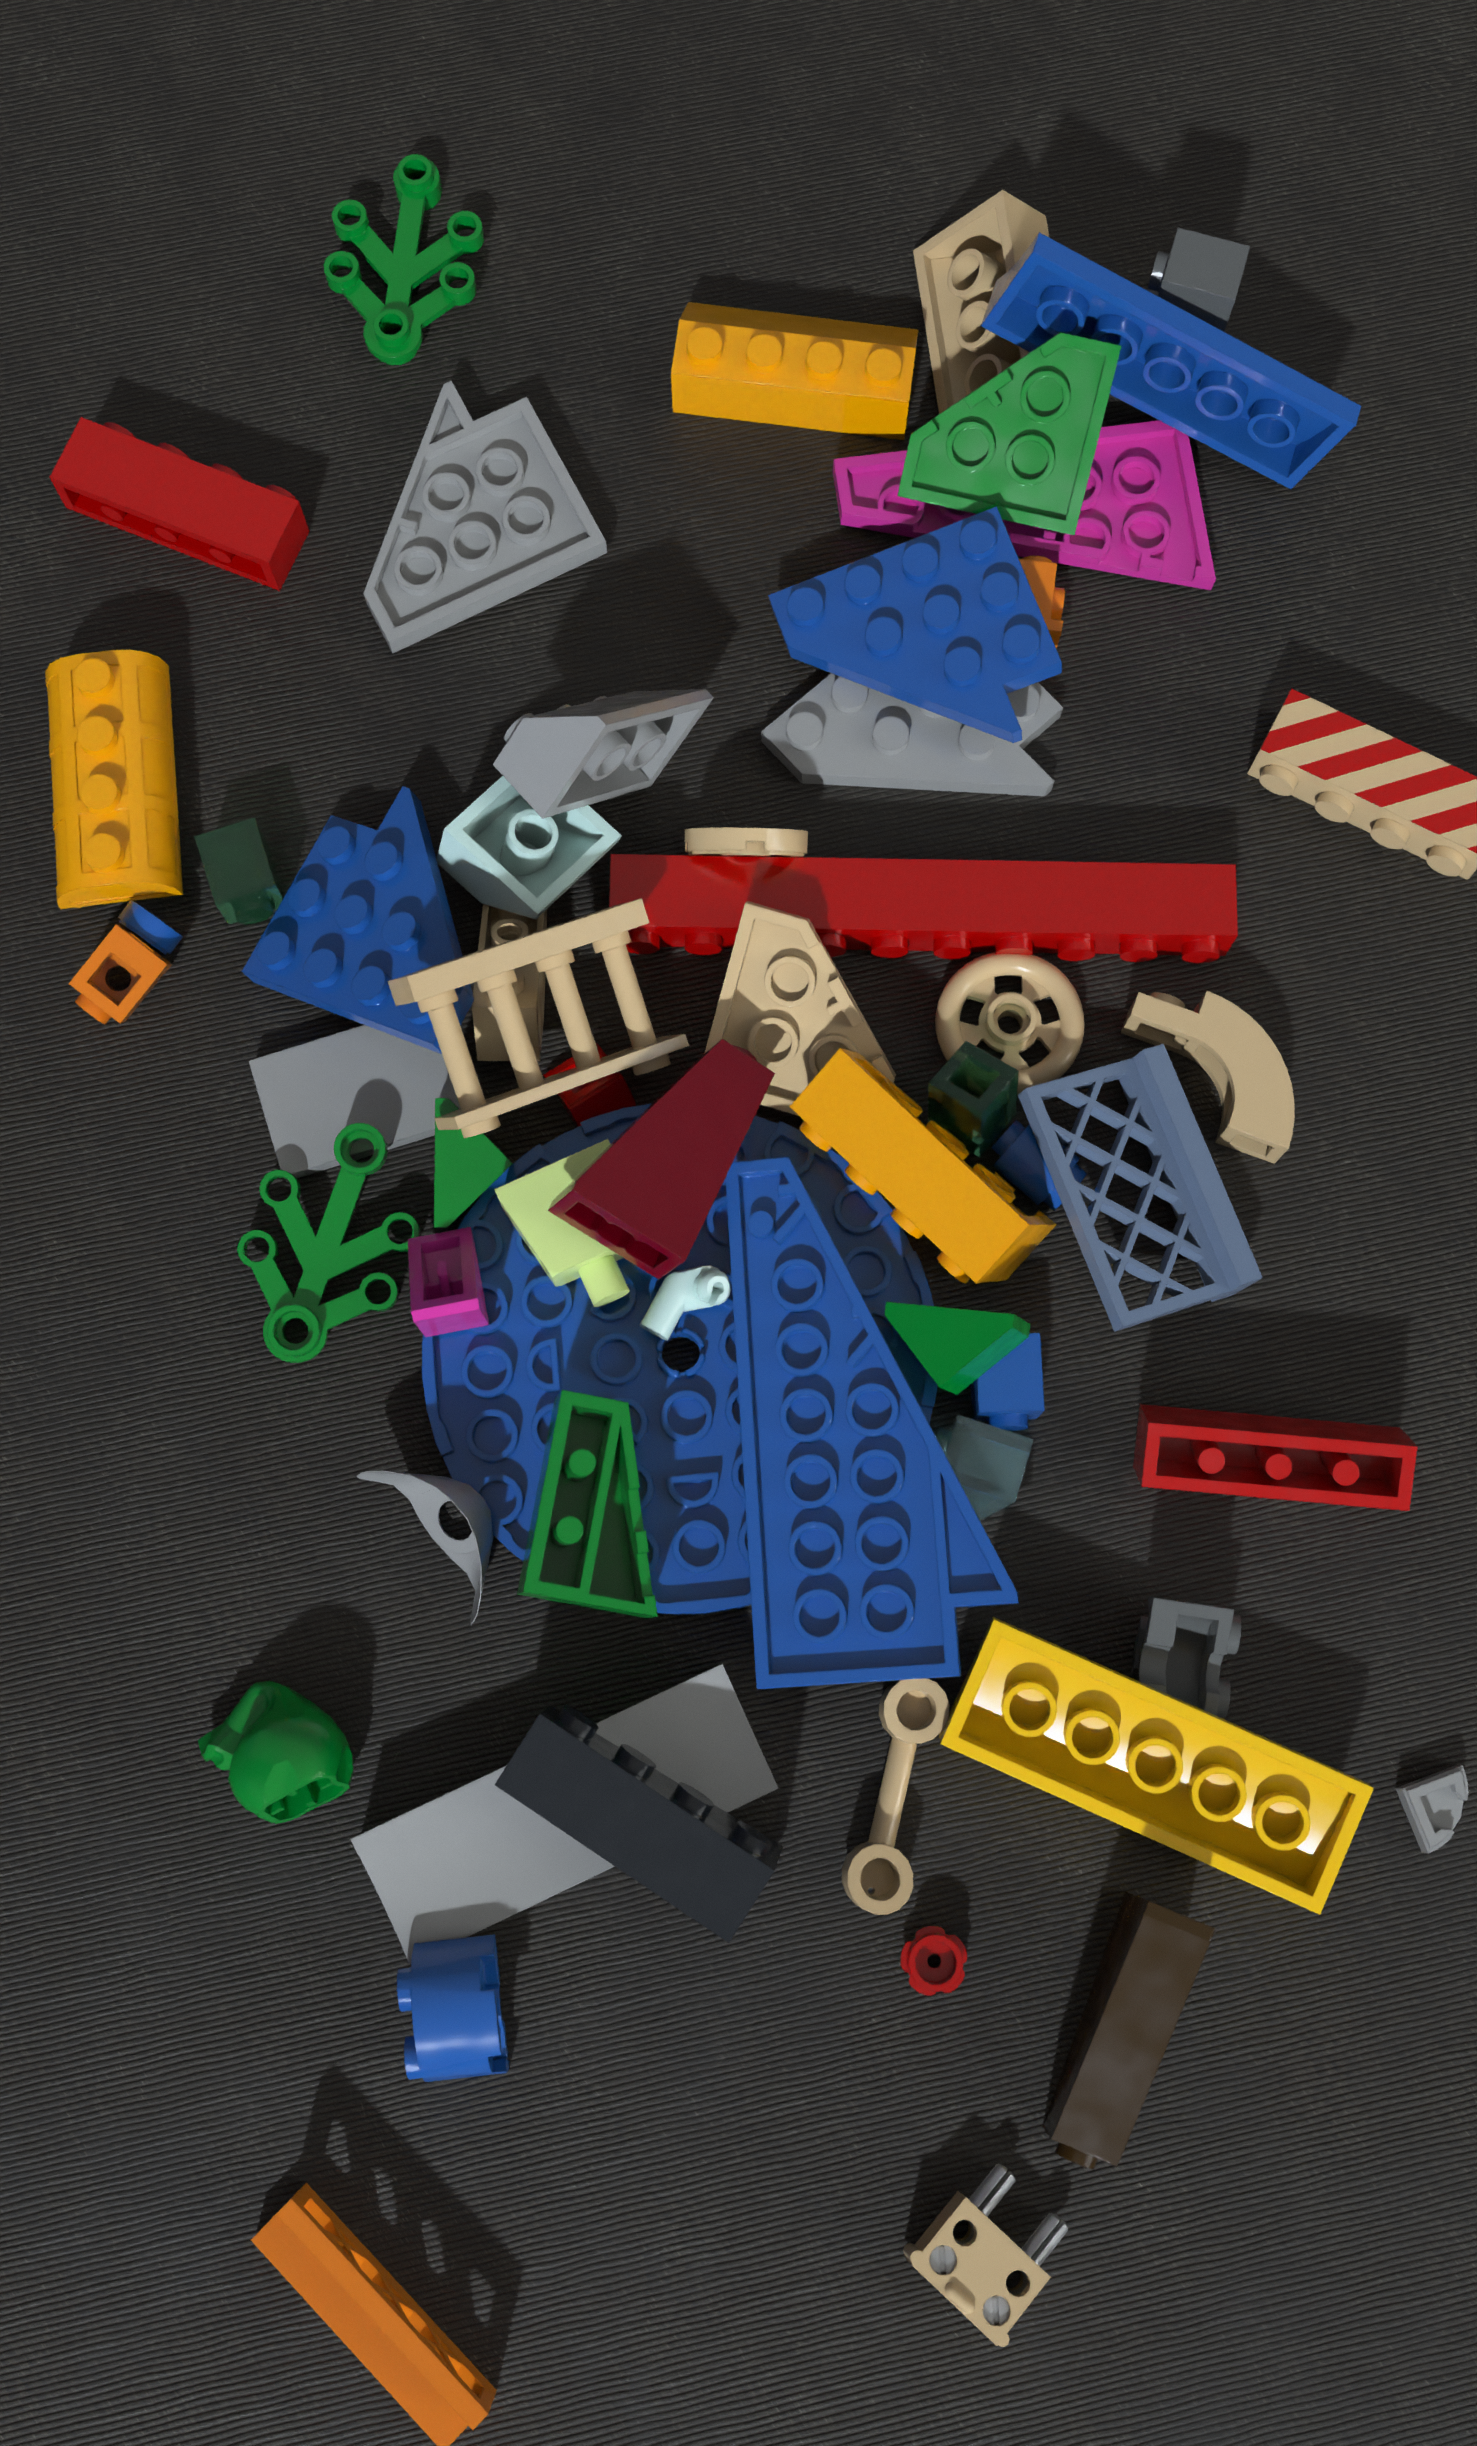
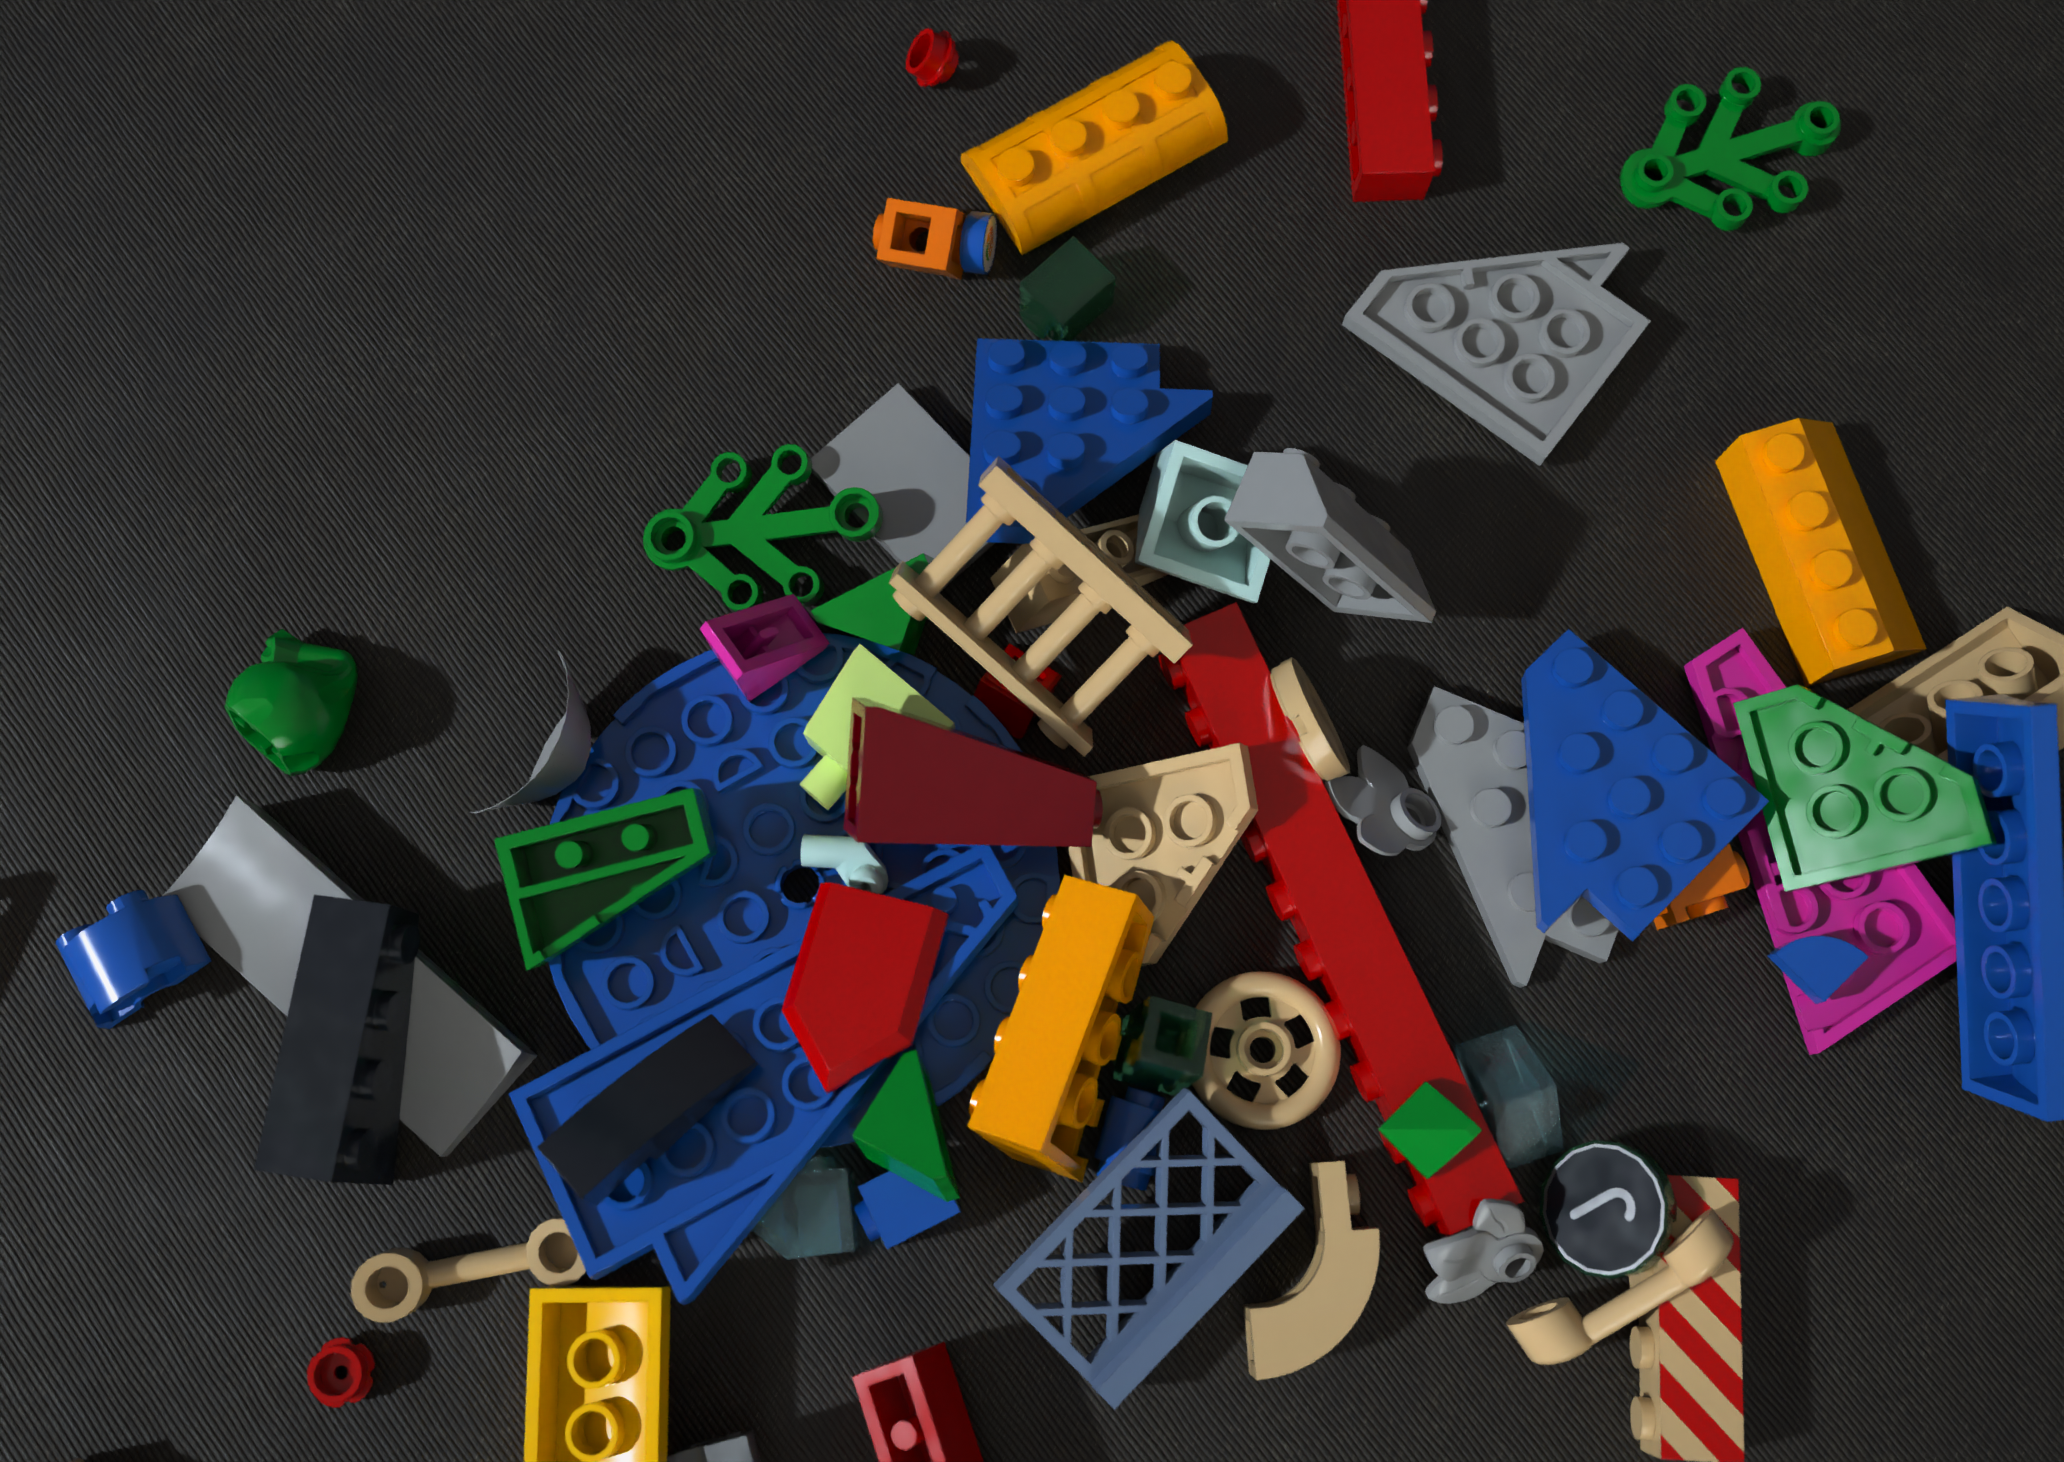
camera: 65 degrees right, 0 degrees up
(800, 1323) = (861, 979): none -> red tile
(834, 1555) = (646, 1109): none -> black slope
(858, 818) = (1384, 806): none -> light grey plate
(1139, 831) = (1513, 1095): none -> clear light blue slope
(1145, 541) = (1818, 964): none -> blue tile
(1145, 908) = (1428, 1129): none -> green slope
(1265, 911) = (1489, 1253): none -> light grey plate
(1269, 803) = (1608, 1209): none -> black tile
(1351, 892) = (1558, 1332): none -> tan piece

